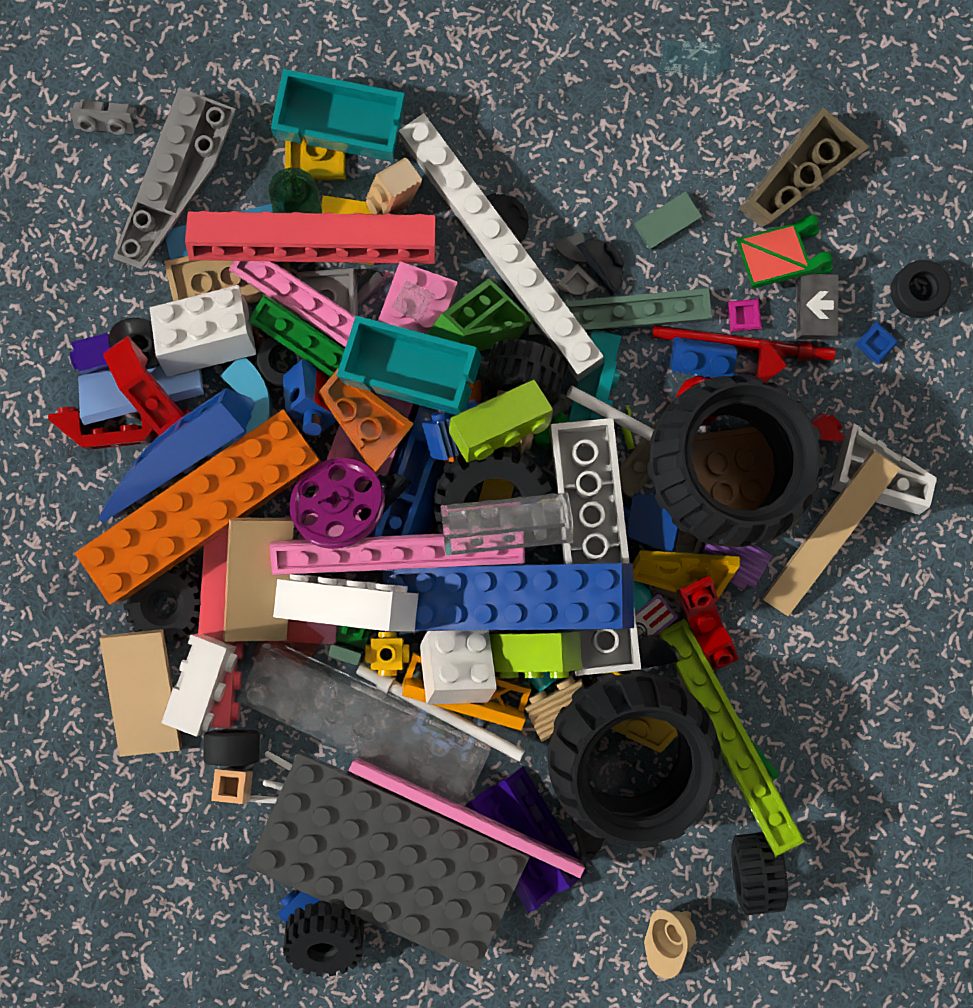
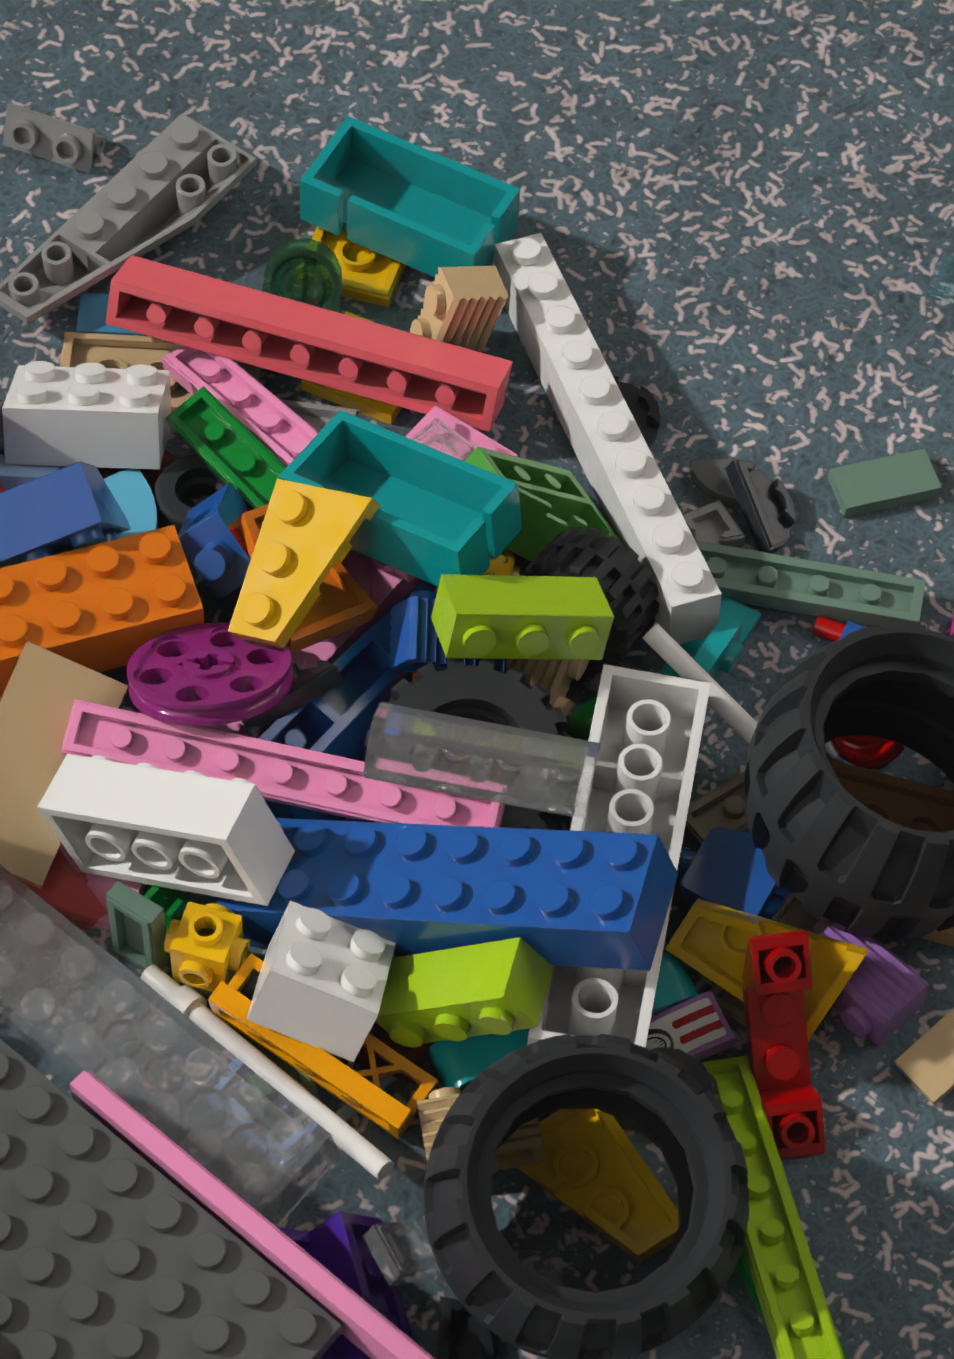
camera: 10 degrees right, 30 degrees down
(362, 425) = (295, 550): none -> yellow wing
(539, 786) = (401, 1251): none -> clear tile
(627, 434) = (728, 738): lime hand -> none

